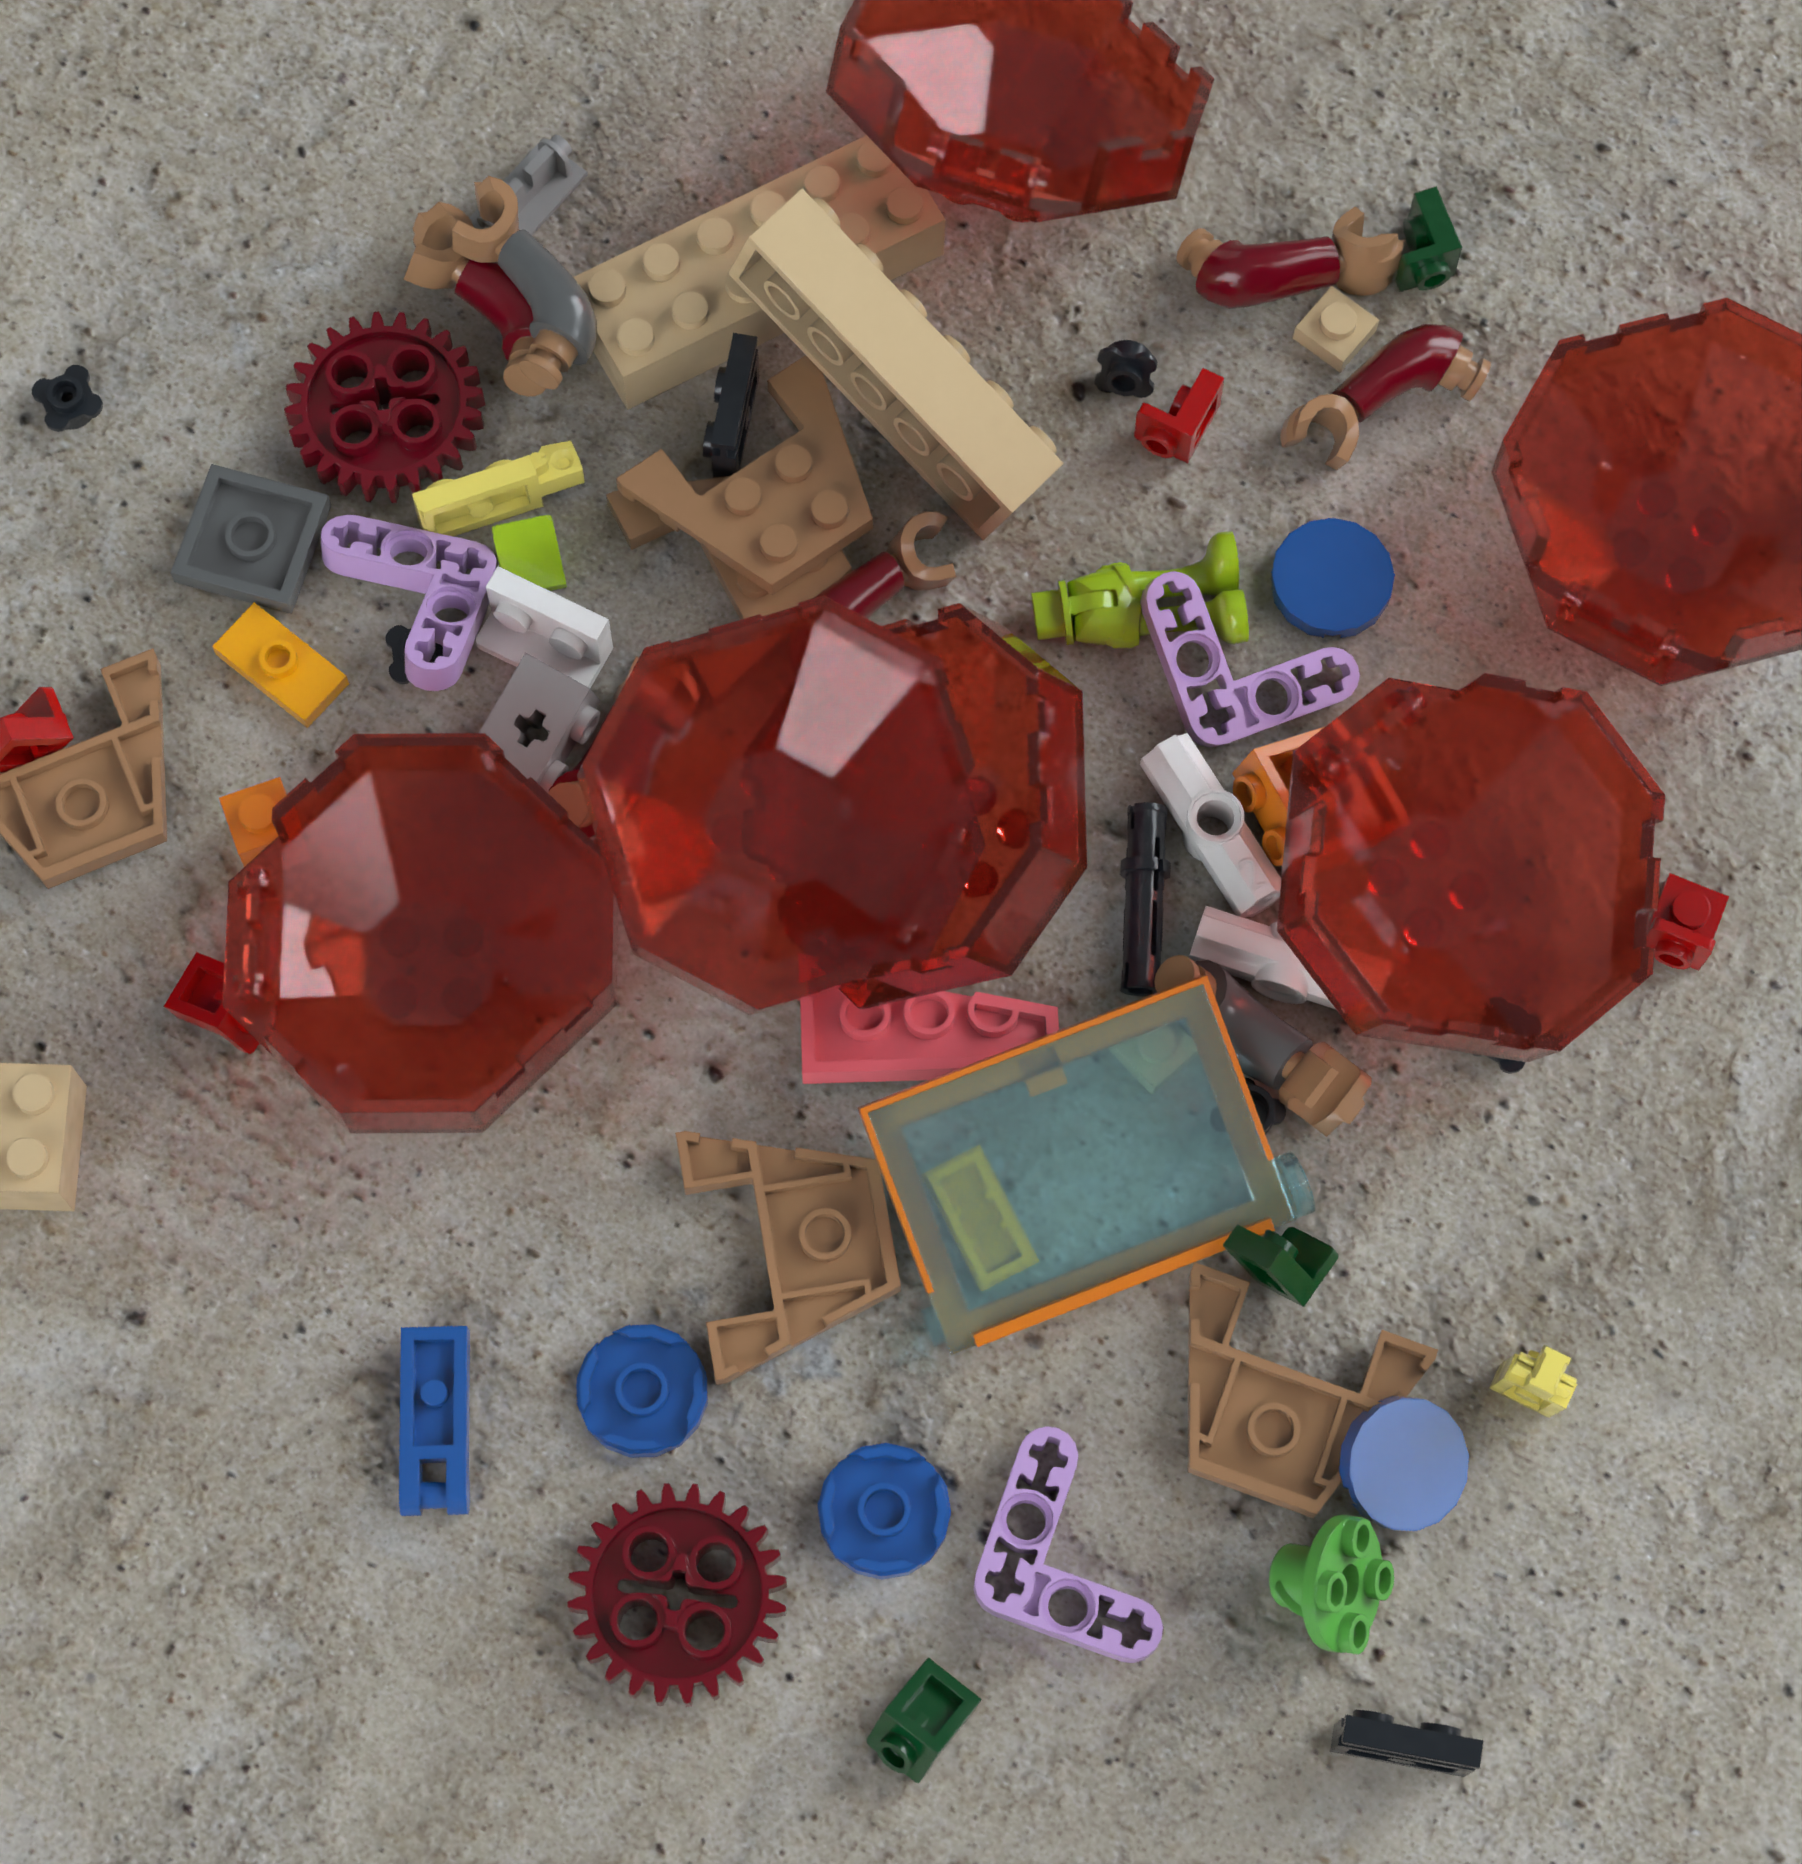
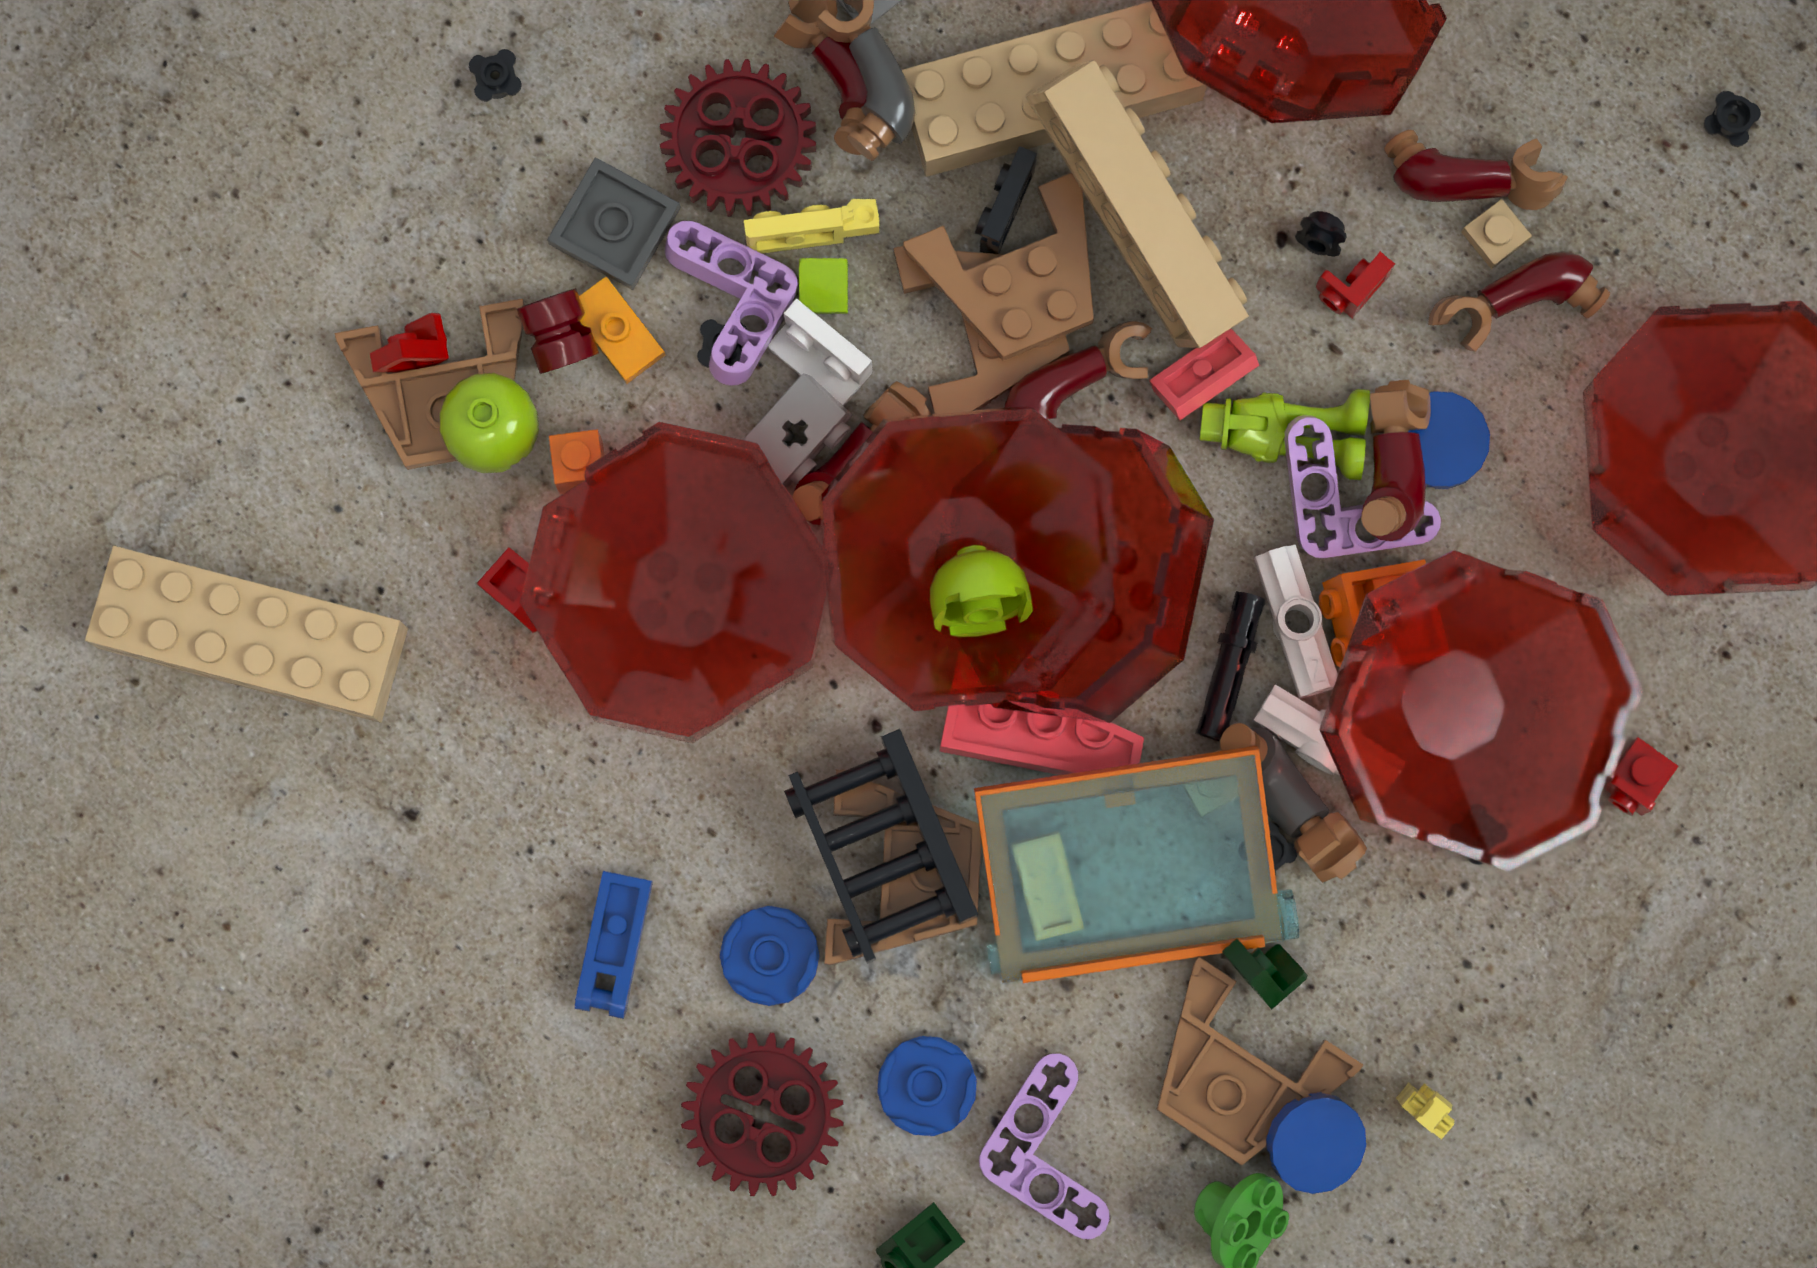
camera: 15 degrees right, 10 degrees up
(139, 801) = (488, 423): none -> lime cylinder
(205, 674) = (557, 331): none -> dark red wheel
(784, 1152) = (929, 854): none -> black fence
(809, 855) = (978, 593): none -> lime cylinder
(1023, 558) = (1204, 373): none -> coral plate
(1293, 615) = (1399, 468): none -> piece
(1432, 244) = (1592, 173): dark green bracket -> none
(1583, 128) = (1744, 111): none -> black plate

